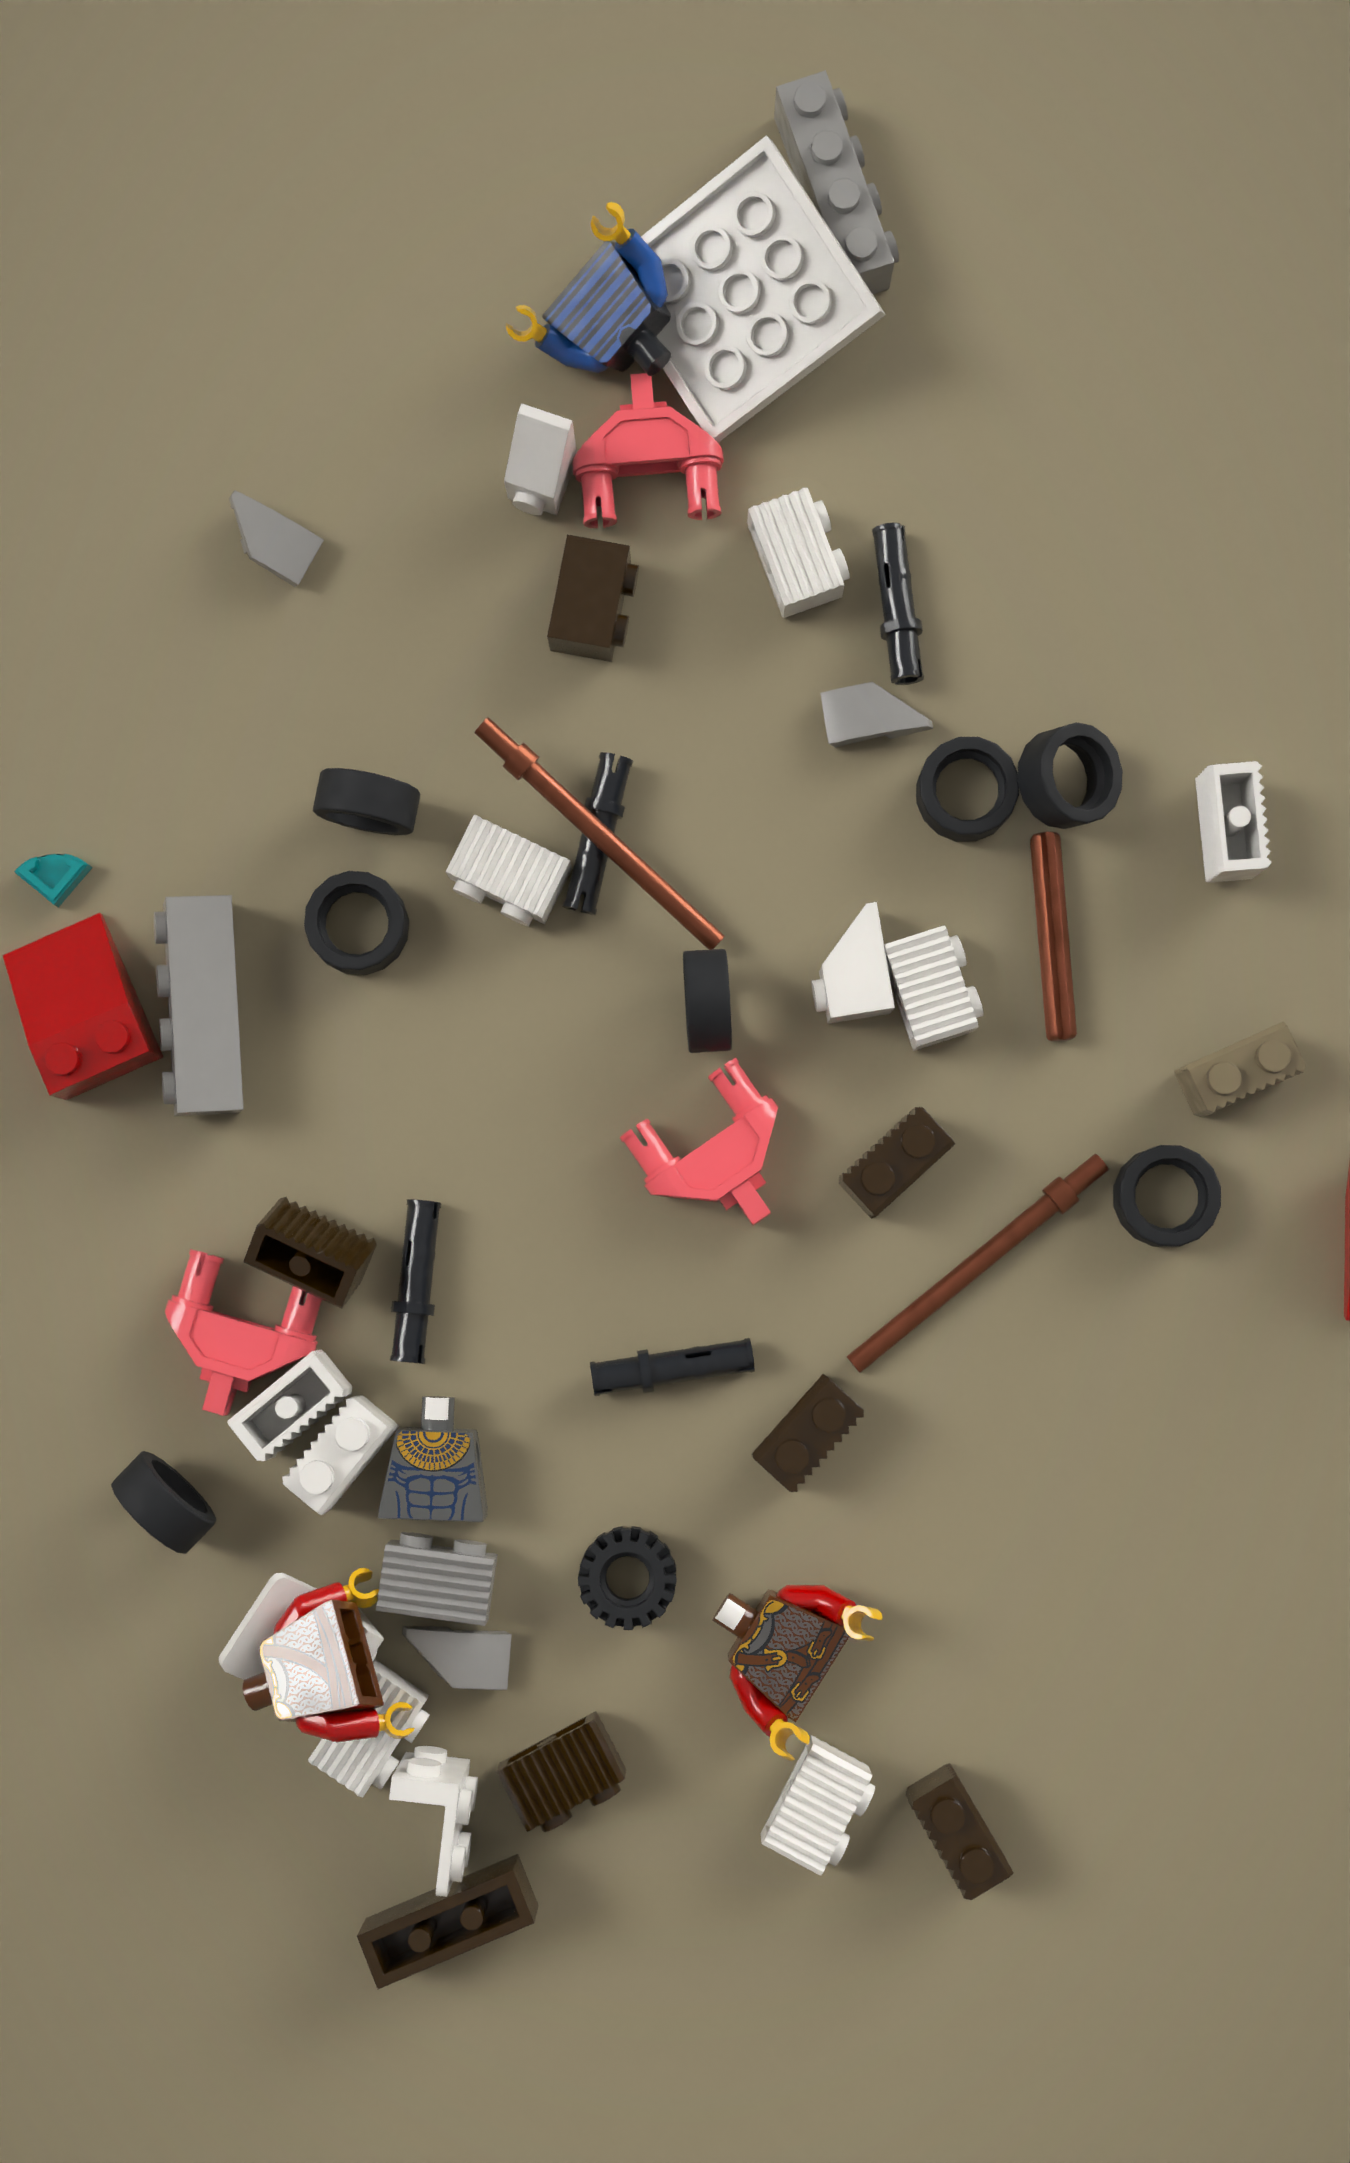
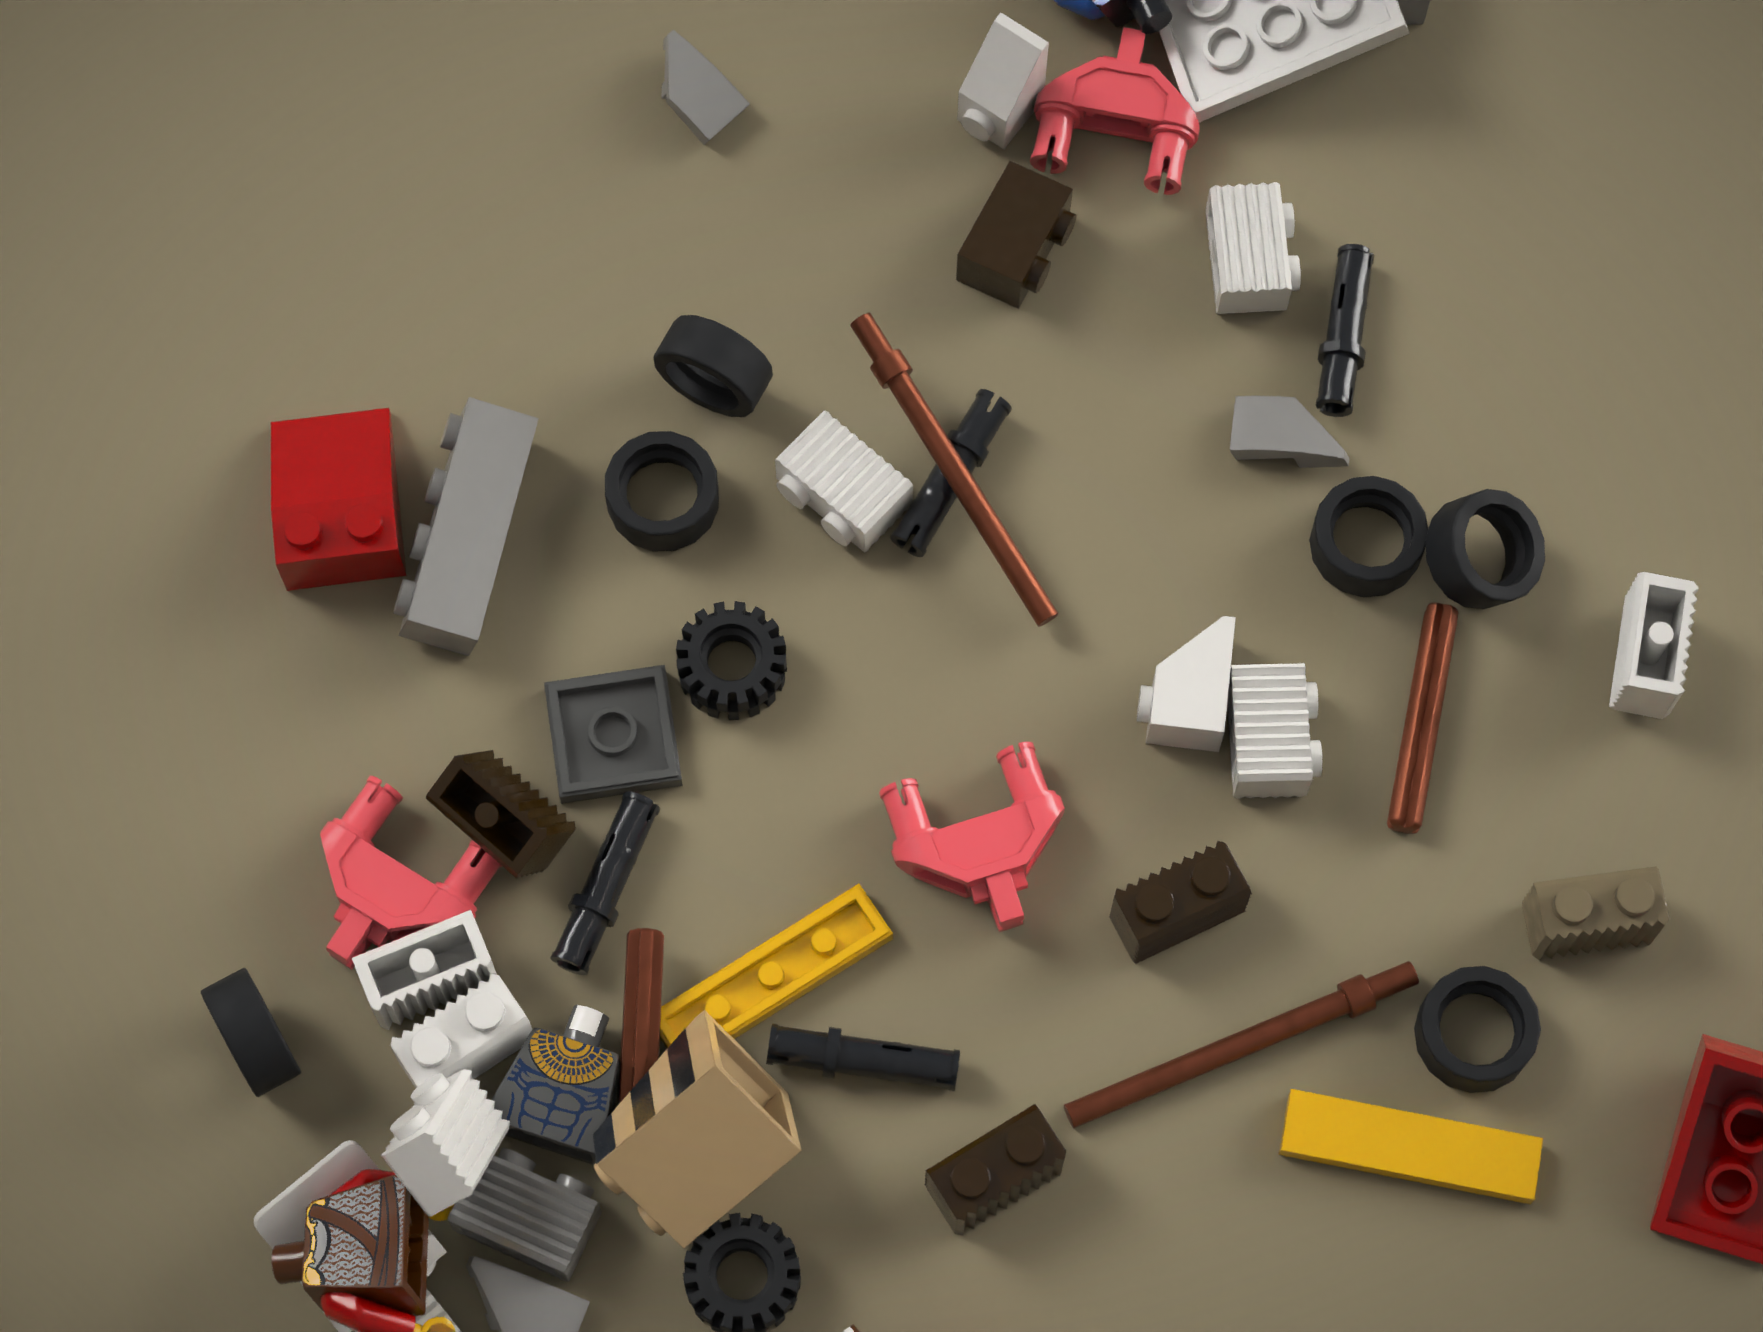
camera: 10 degrees right, 15 degrees down
(54, 875) = (353, 357): teal tile -> none
(355, 1560) = (445, 1140): none -> white brick
(381, 1148) = (612, 734): none -> dark grey tile
(438, 1034) = (722, 627): none -> black tyre
(488, 1419) = (641, 1006): none -> copper axle
(558, 1479) = (696, 1133): none -> tan slope
(575, 1319) = (782, 967): none -> yellow tile
(707, 1000) = (1019, 669): black tyre -> none
(1137, 1308) = (1411, 1146): none -> yellow tile

